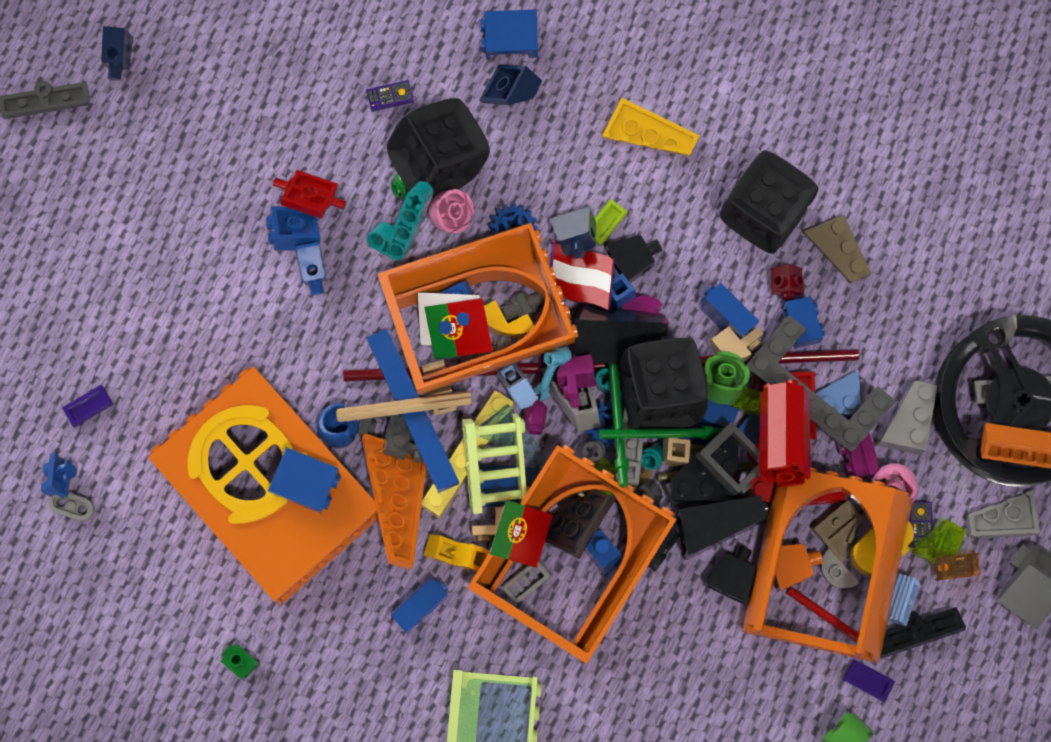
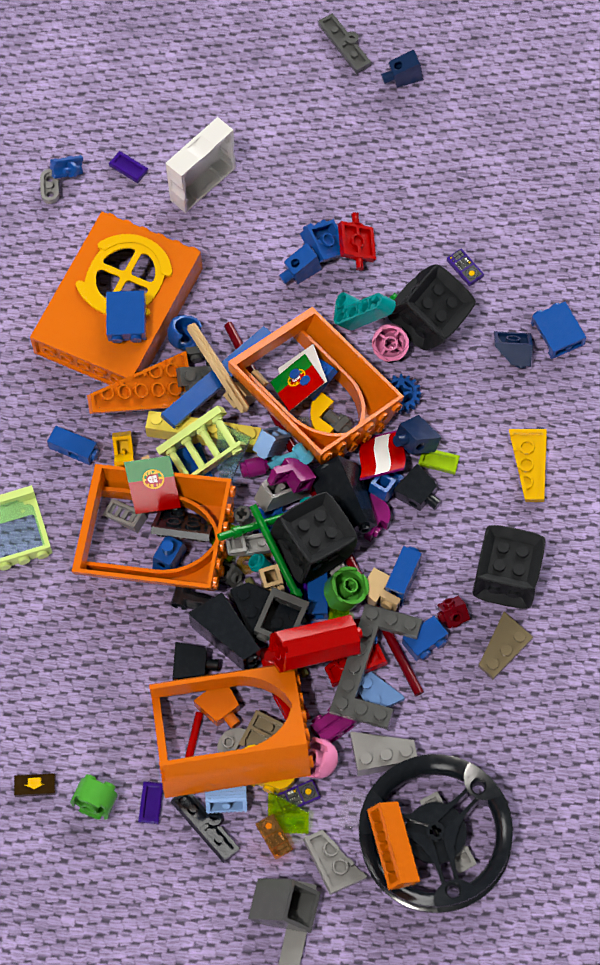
camera: 70 degrees right, 10 degrees down
(140, 320) = (201, 164): none -> white tile

